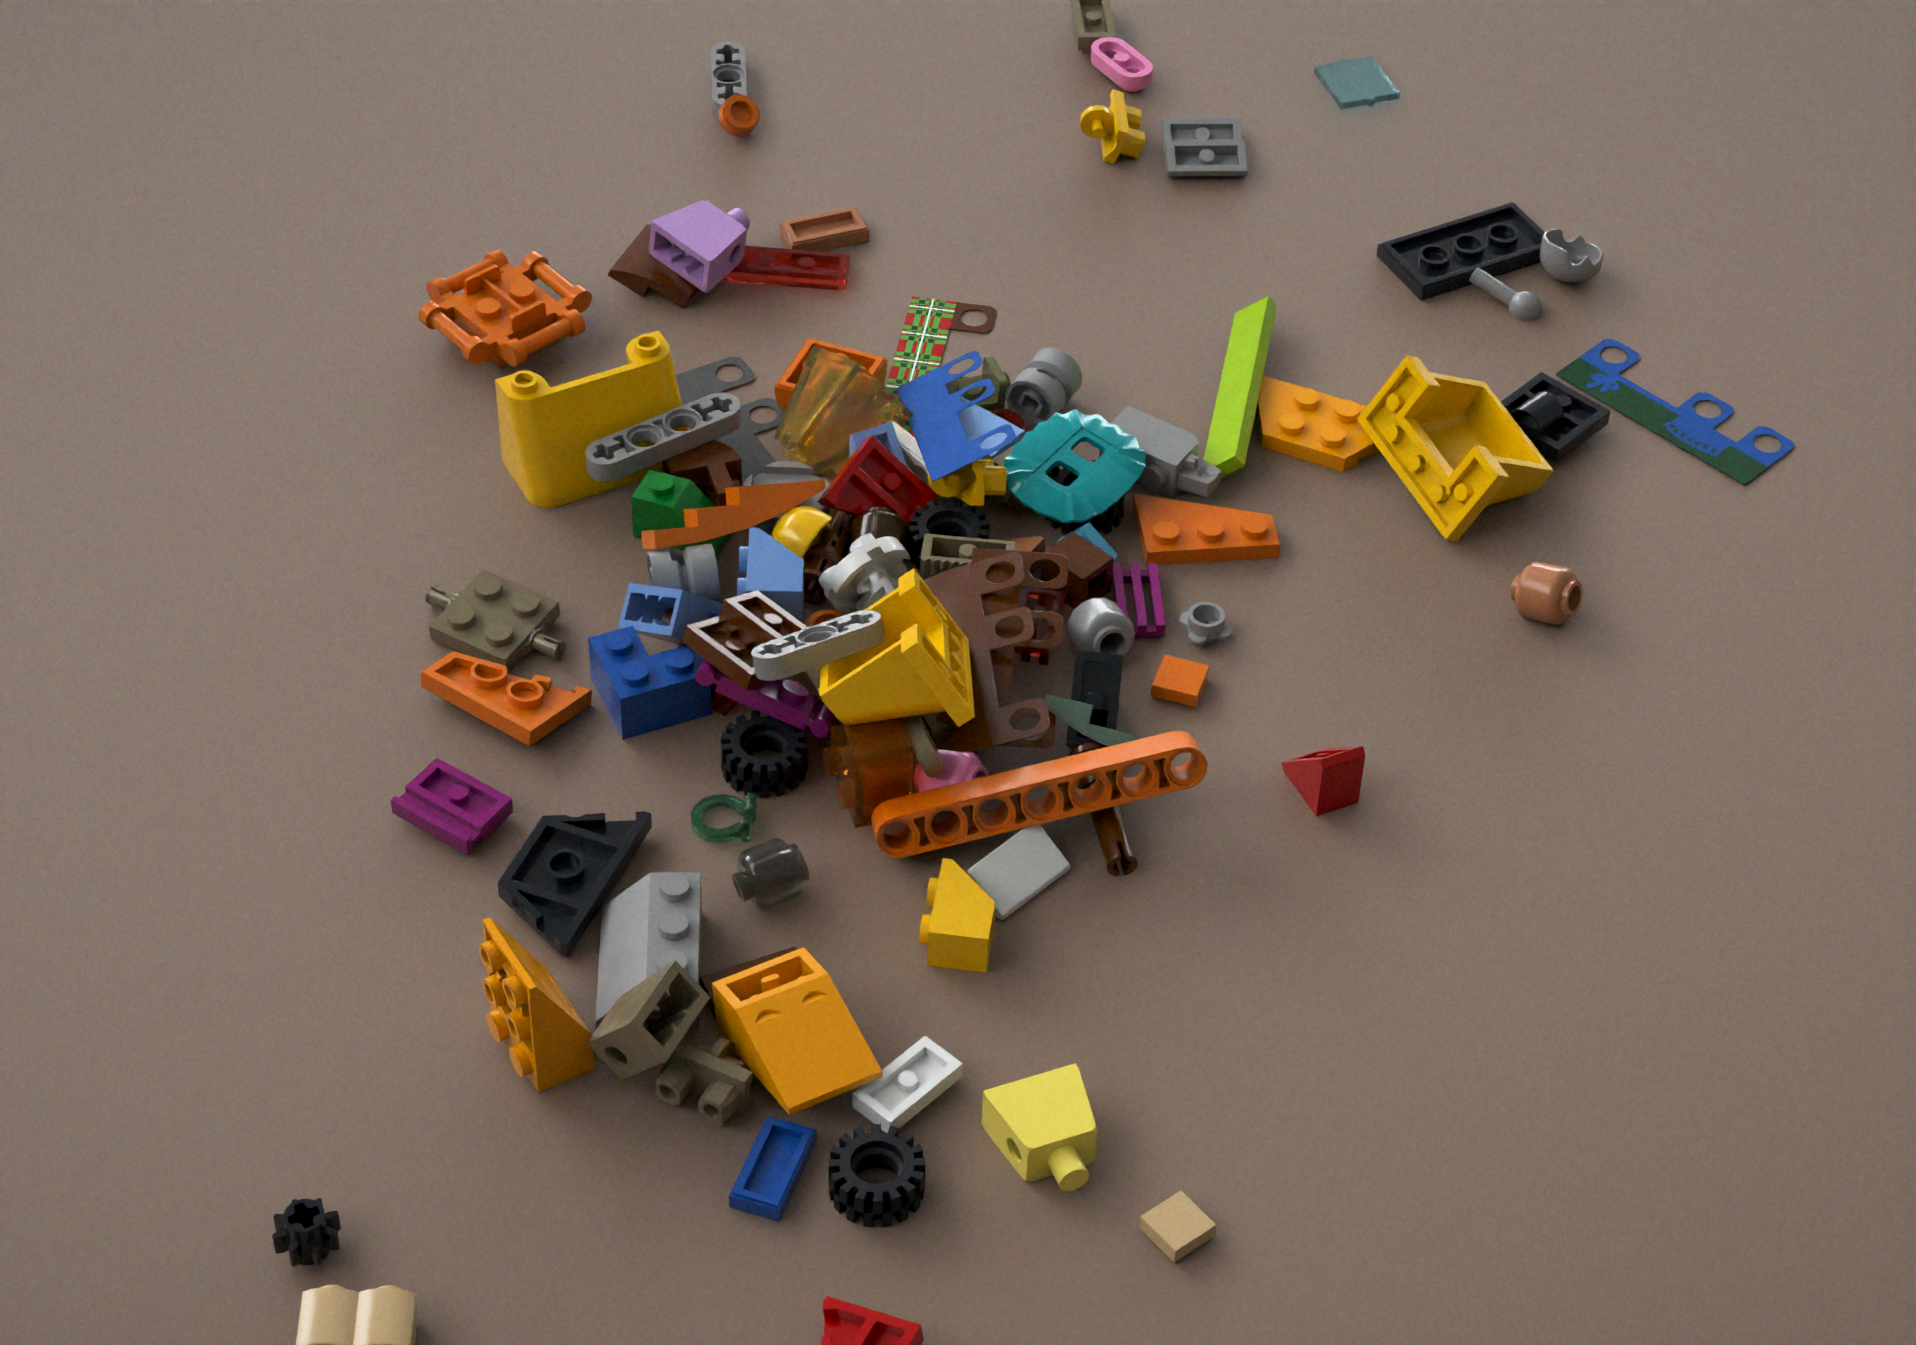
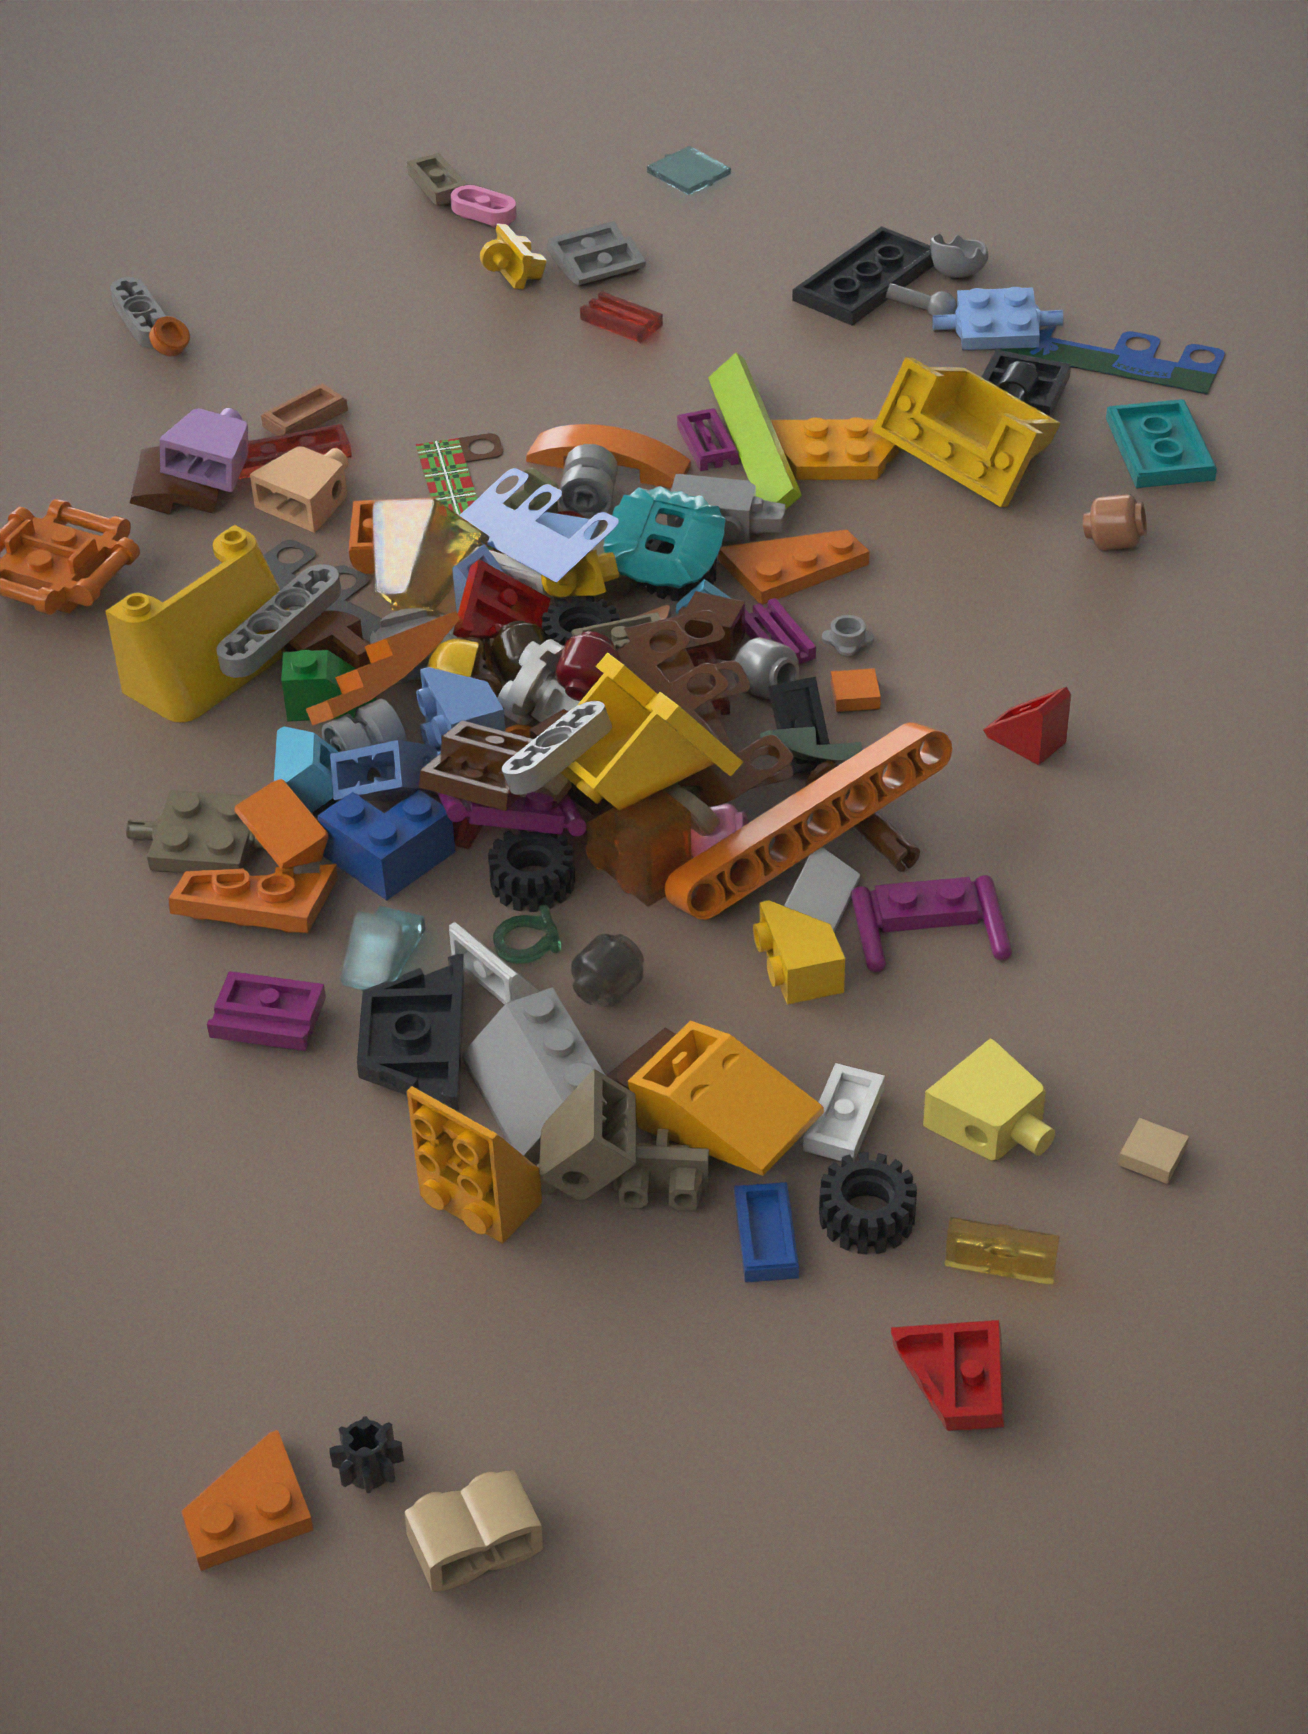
camera: 20 degrees left, 0 degrees up
(189, 1239) = (248, 1506): none -> orange wing
(558, 637) = (283, 825): none -> orange slope
(587, 781) = (380, 946): none -> clear light blue slope
(604, 589) = (304, 765): none -> medium azure slope
(673, 832) = (488, 968): none -> white slope
(774, 307) = (301, 486): none -> light nougat torso
(911, 555) = (578, 662): none -> dark red head
(969, 1264) = (1001, 1250): none -> clear yellow plate
(1098, 360) = (654, 459): none -> orange slope
(1111, 917) = (928, 906): none -> magenta plate
(1193, 397) = (712, 455): none -> magenta tile
(1194, 220) = (621, 317): none -> clear red tile
(1571, 338) = (997, 318): none -> light blue plate
(1657, 524) = (1160, 443): none -> teal tile

